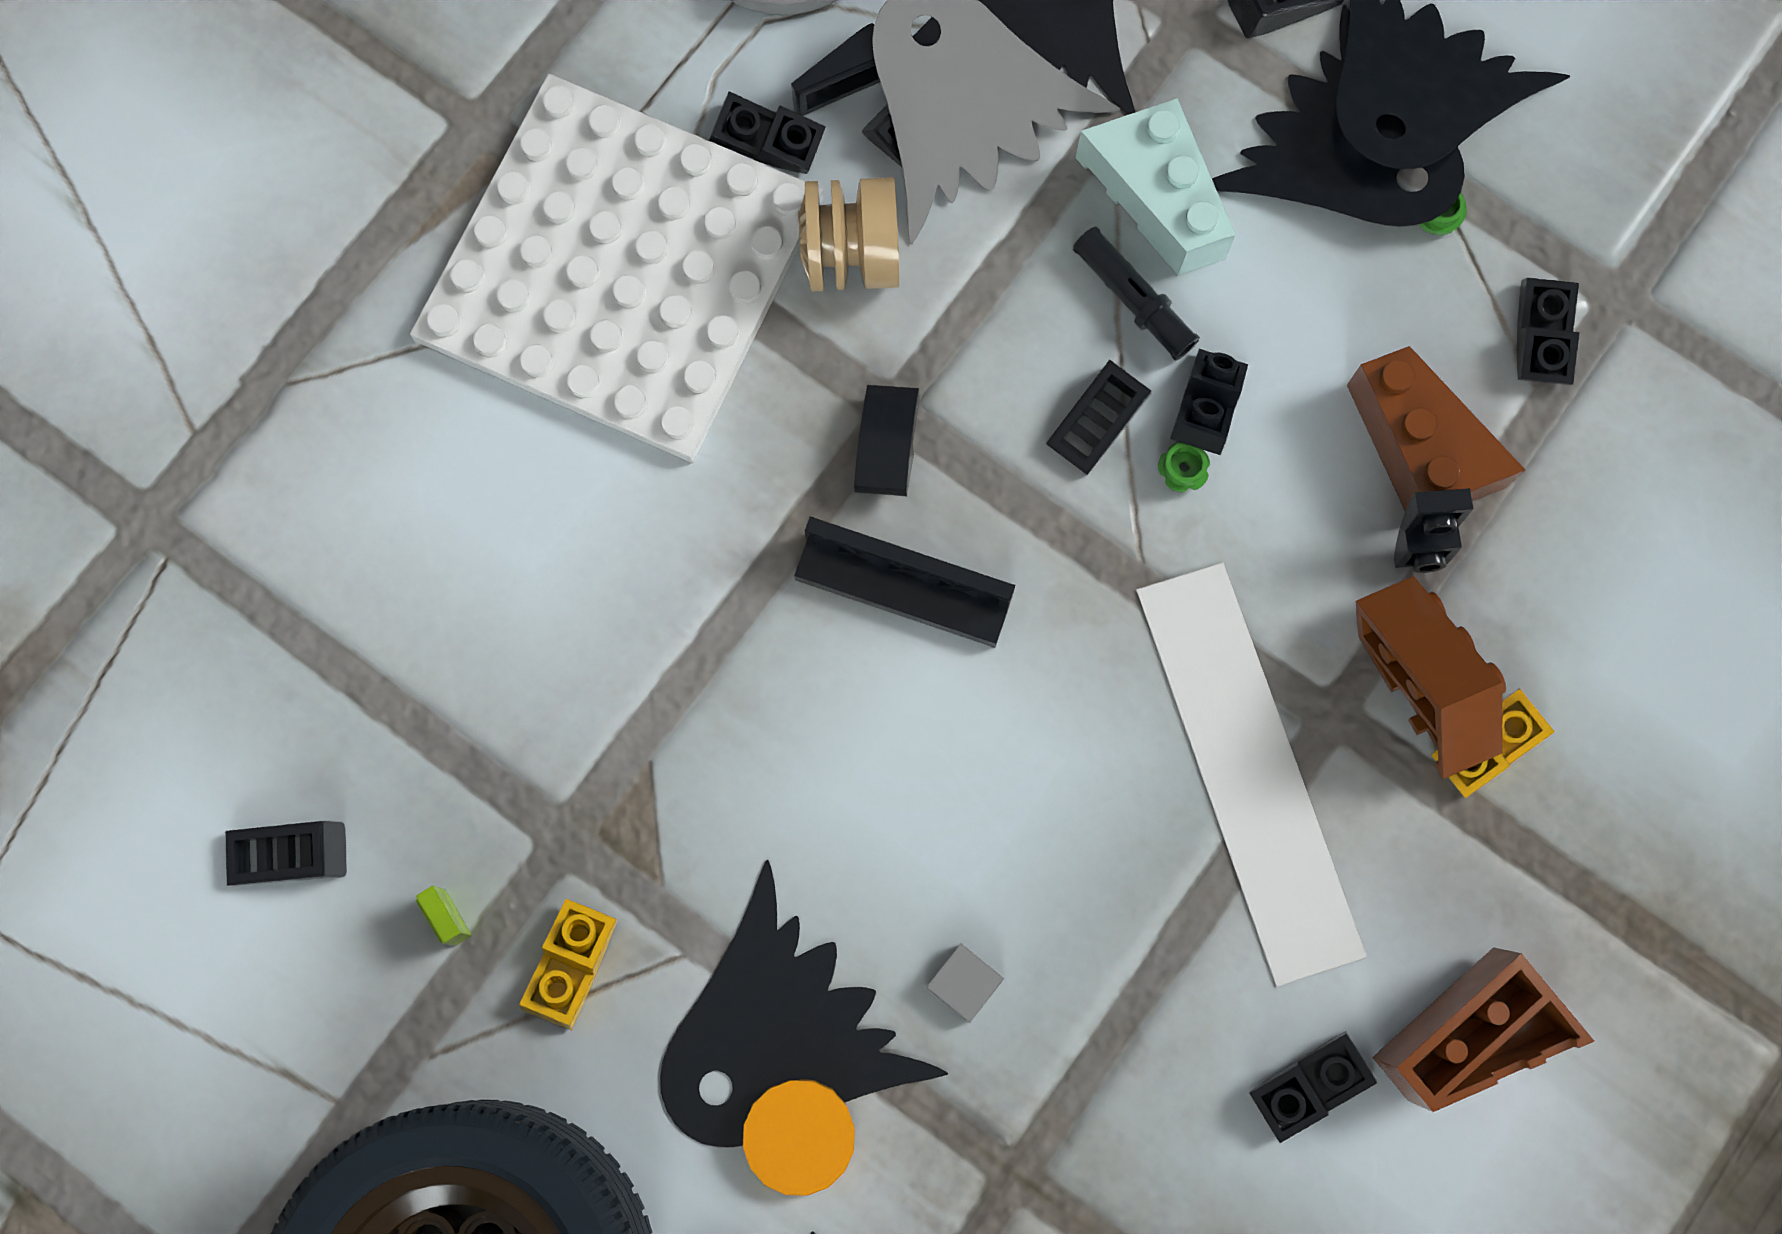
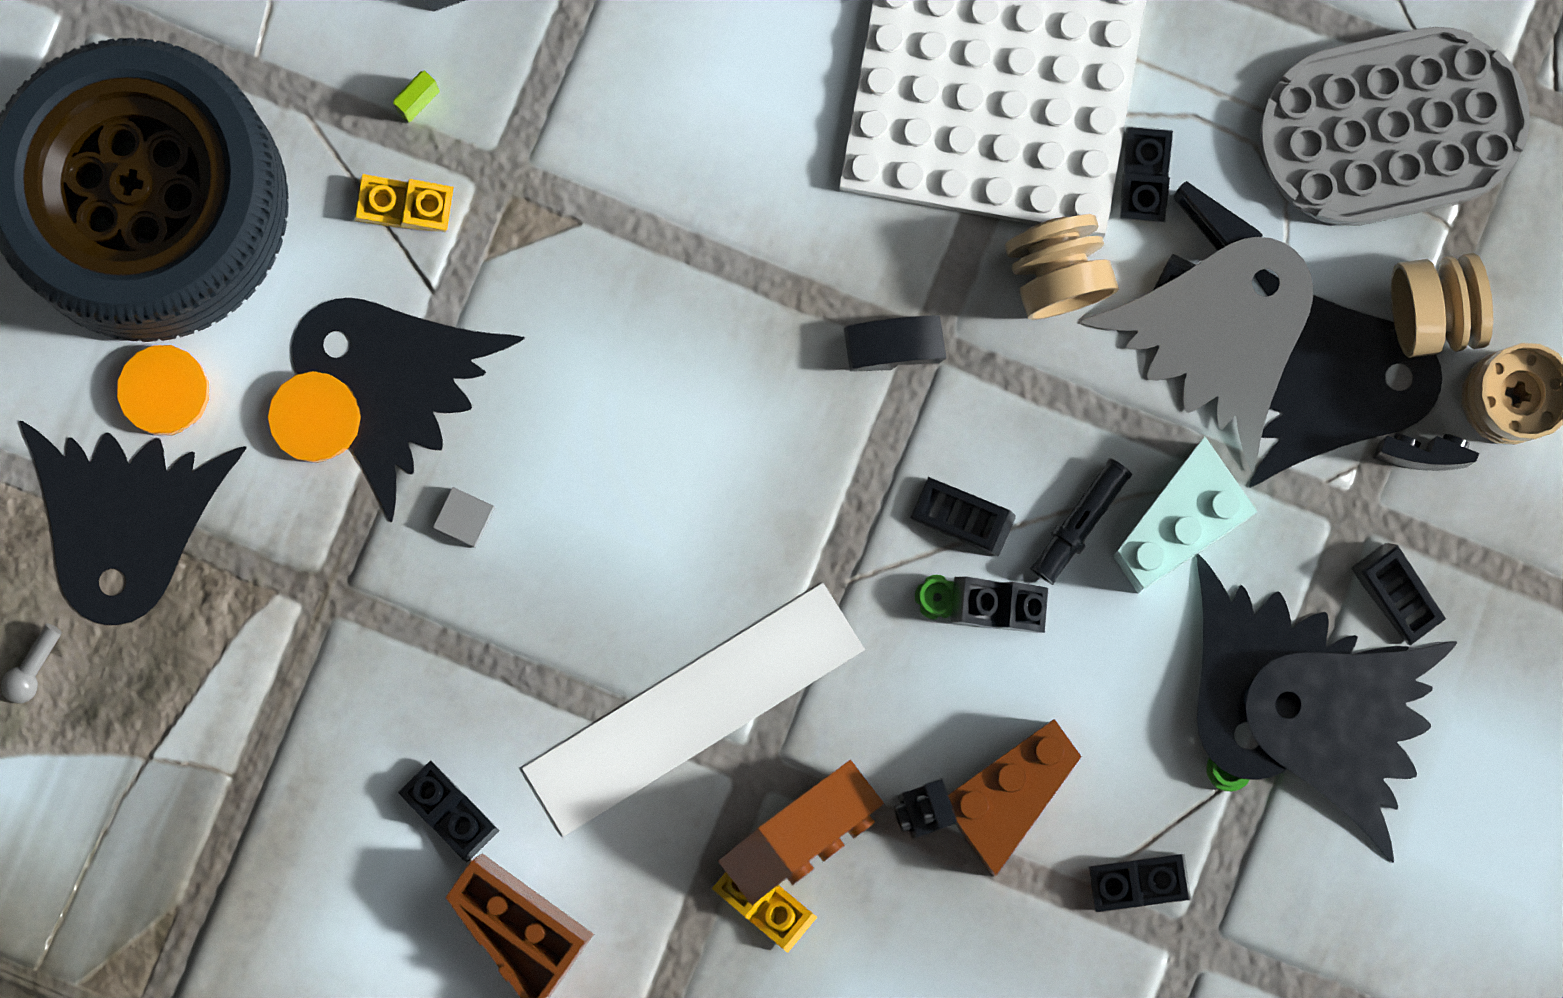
camera: 75 degrees right, 5 degrees up
(904, 582) = (775, 388): black fence -> none

